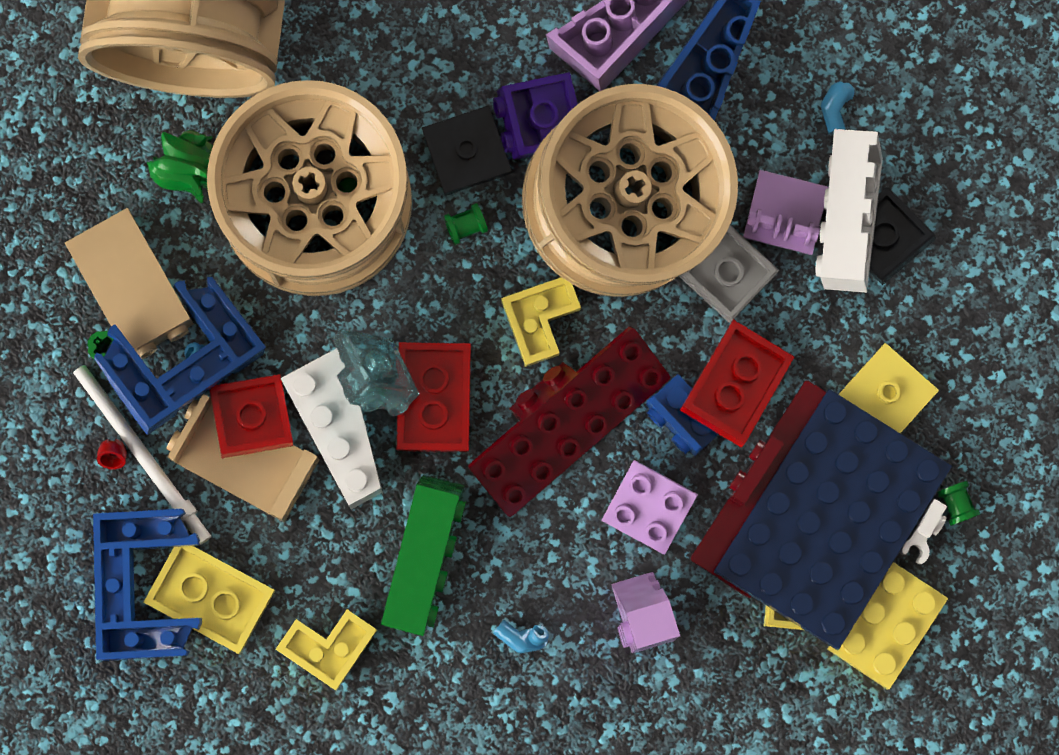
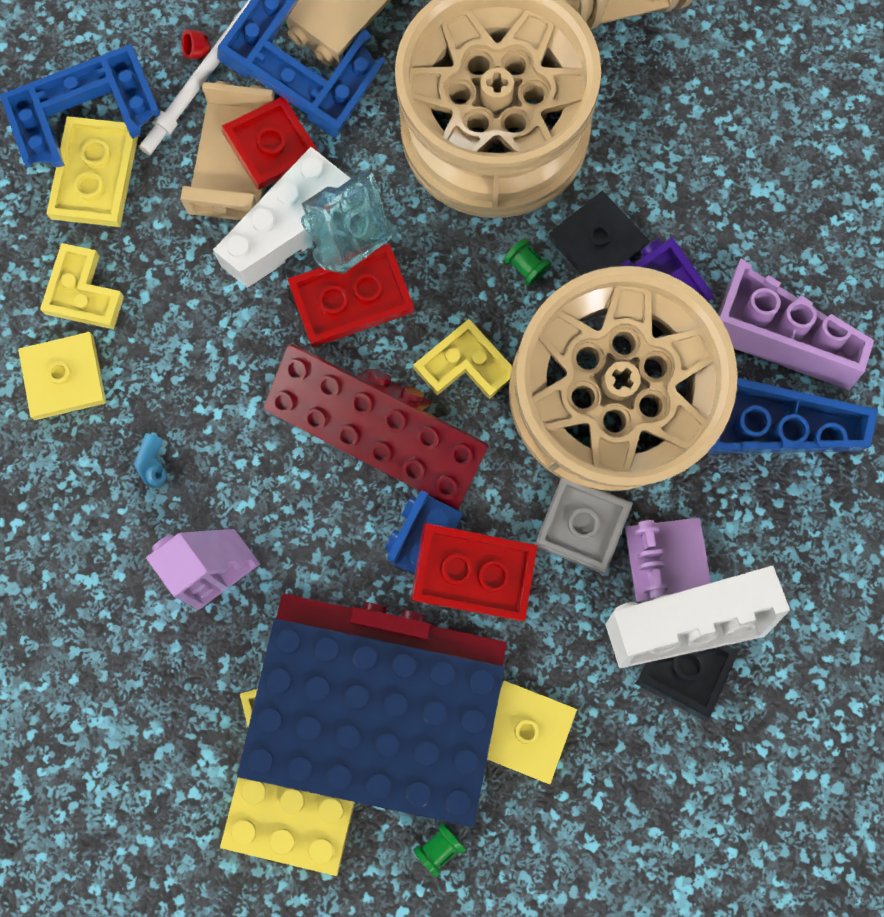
camera: 75 degrees right, 5 degrees down
(405, 693) = (62, 376): none -> light yellow plate
(423, 554) = (196, 337): green wedge -> none
(649, 507) = (320, 534): lavender hinge -> none
(834, 100) = (803, 565): dark azure arm -> none
(928, 524) = (408, 826): white plate -> none

